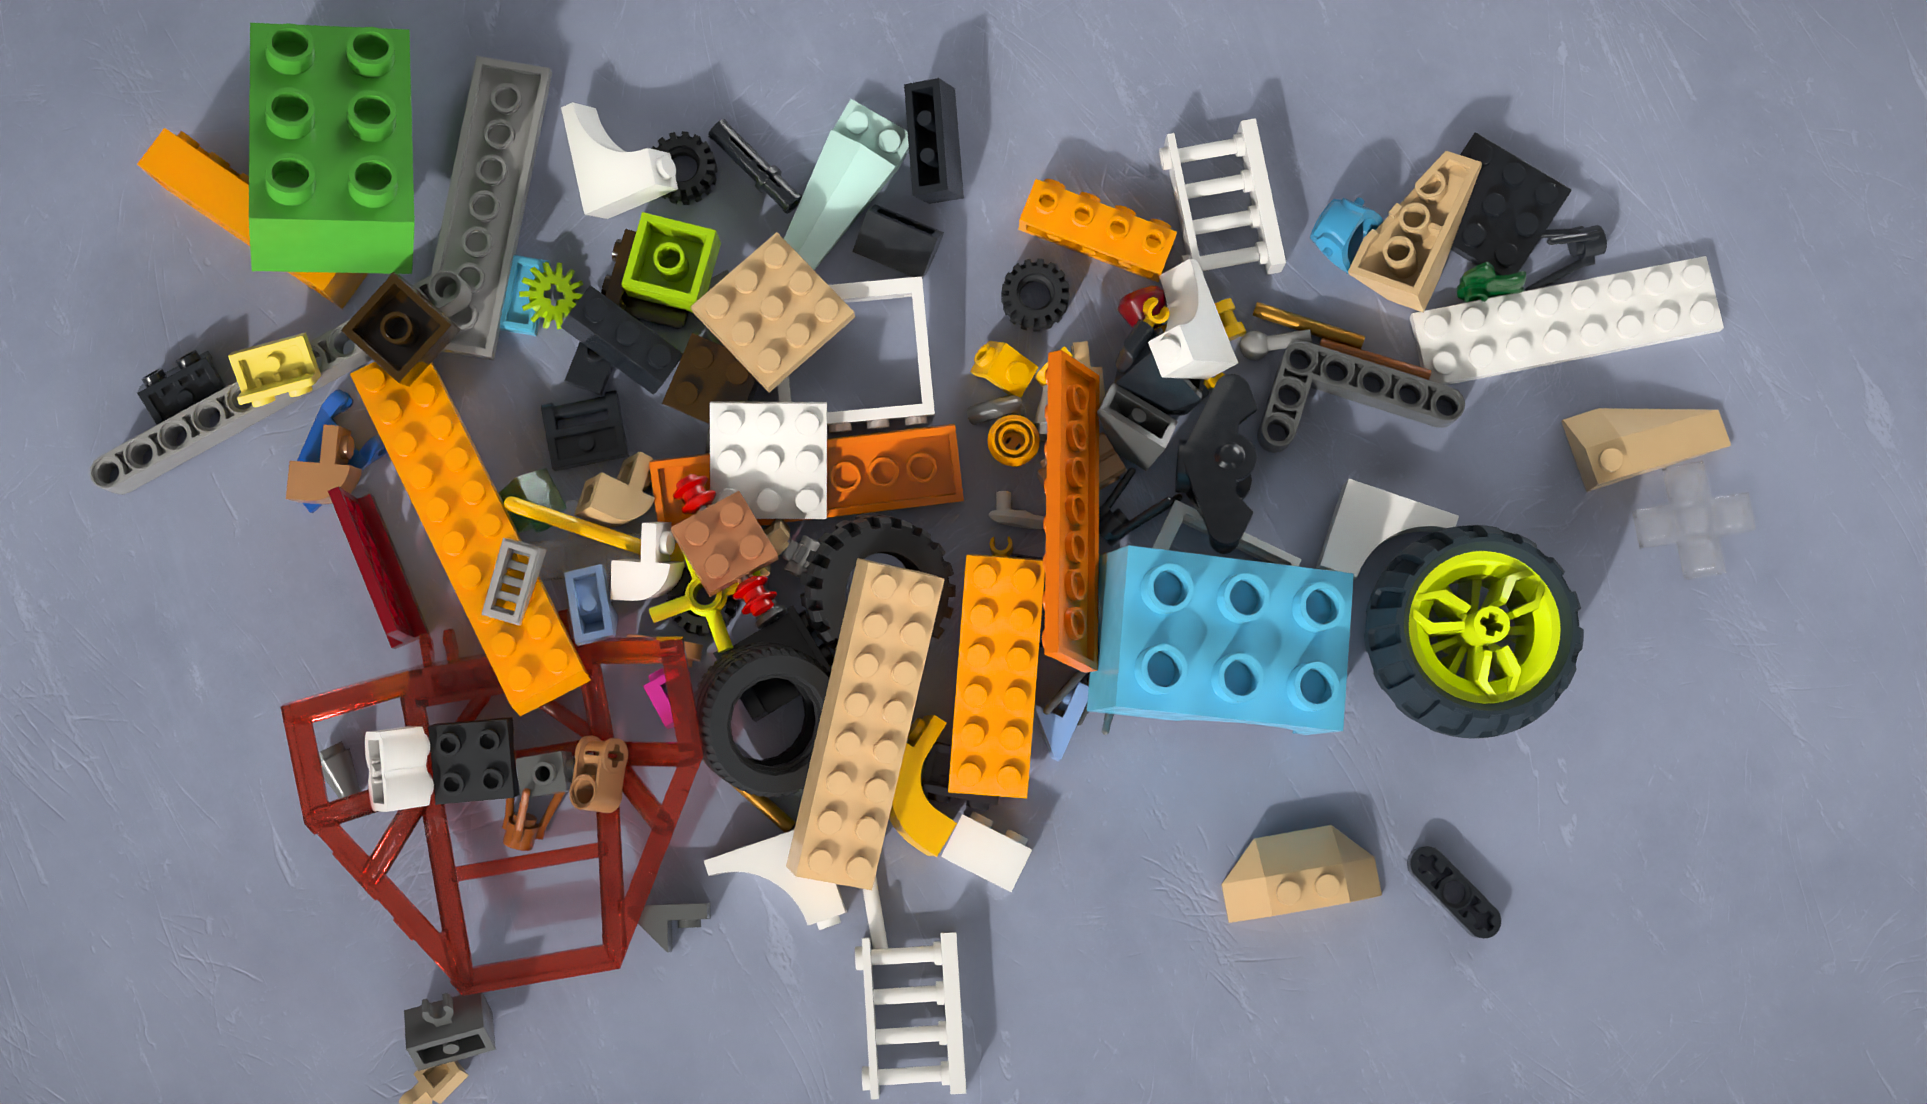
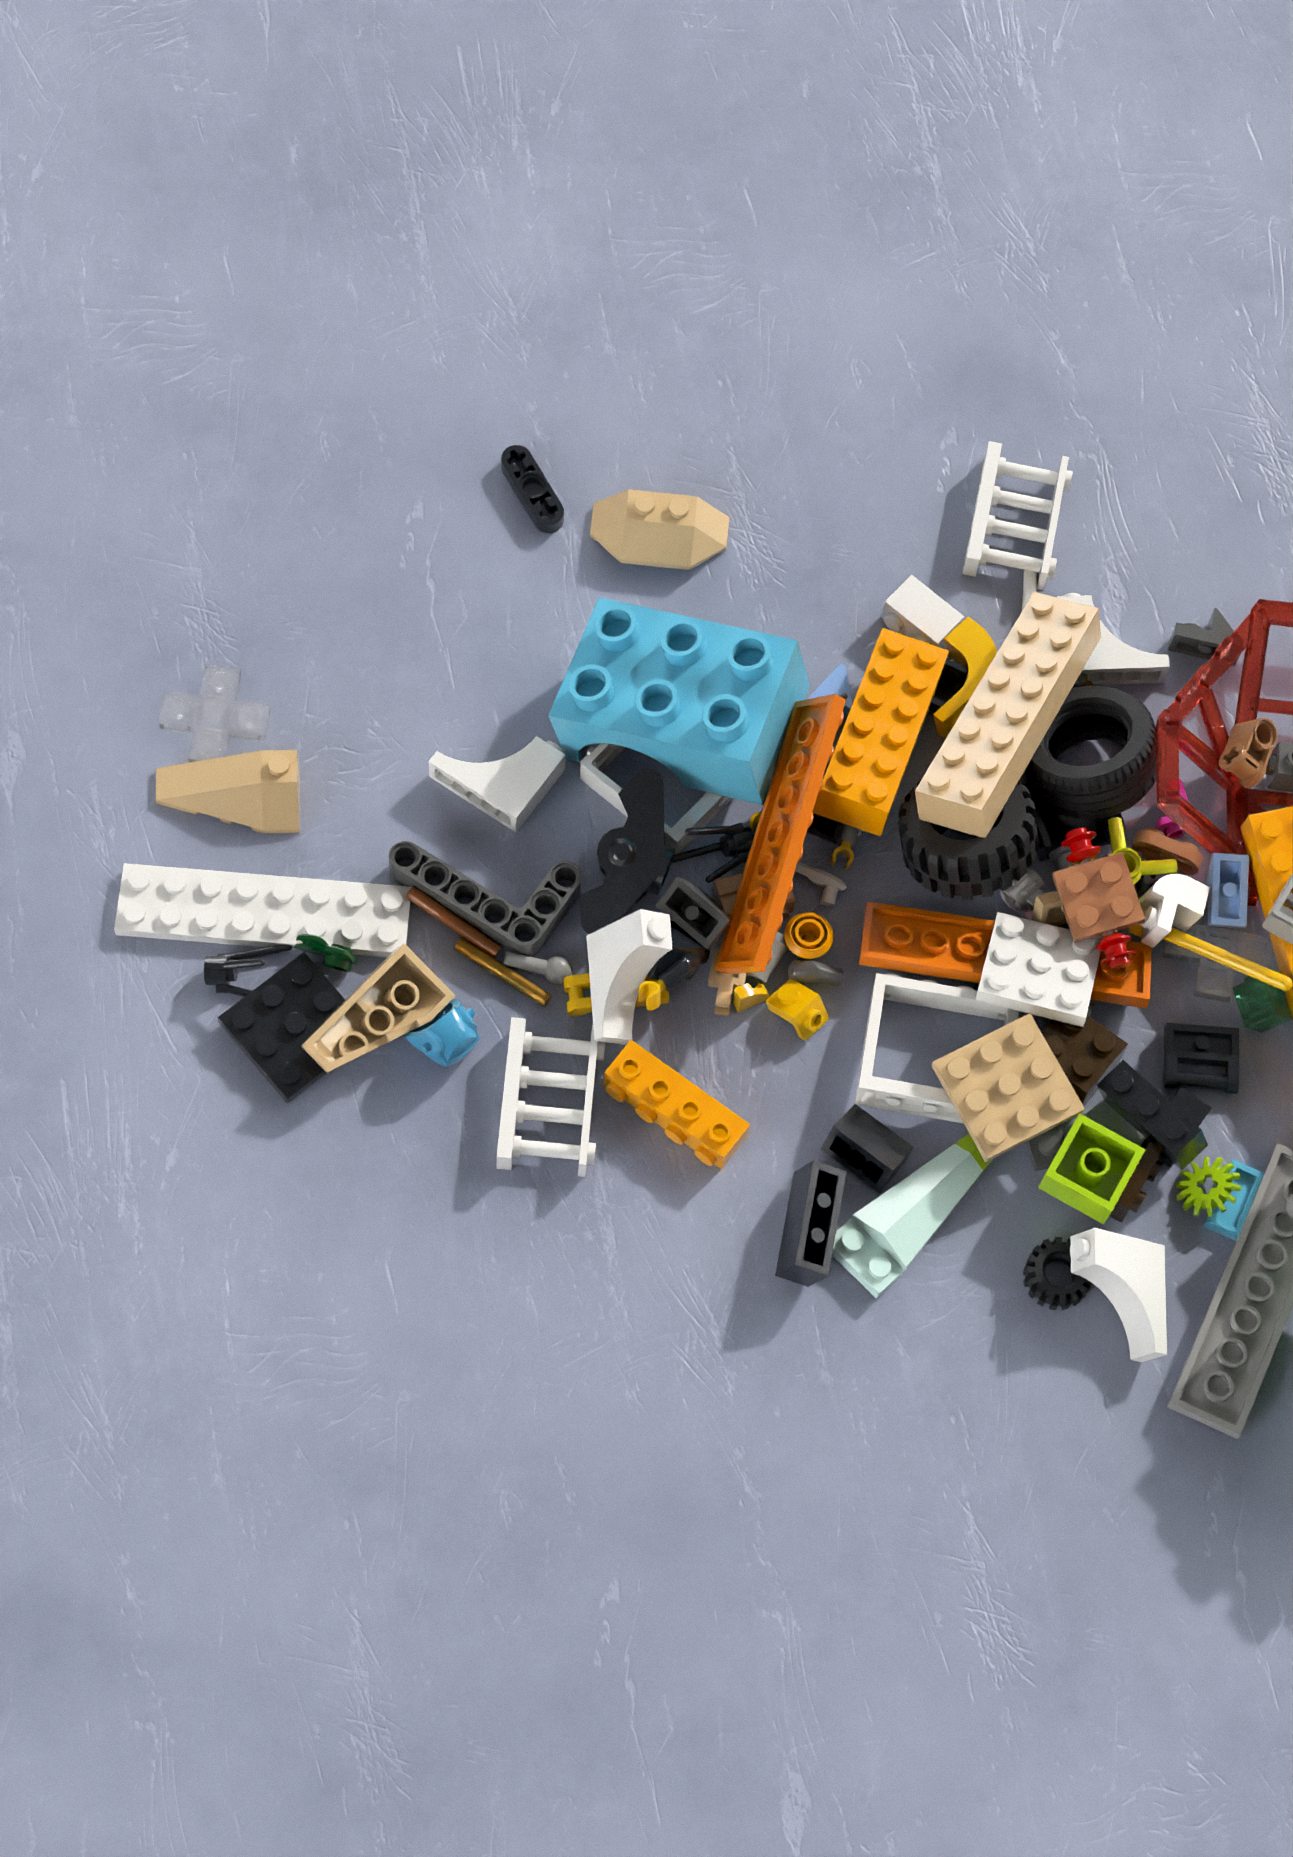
camera: 170 degrees left, 15 degrees down
(619, 500) = (1182, 975): tan brick -> none
(767, 178) = (964, 1220): black pin -> none
(1041, 273) = (753, 1043): black tyre -> none
(1132, 304) = (653, 1025): dark red cone -> none
(1515, 575) = (428, 623): wheel -> none

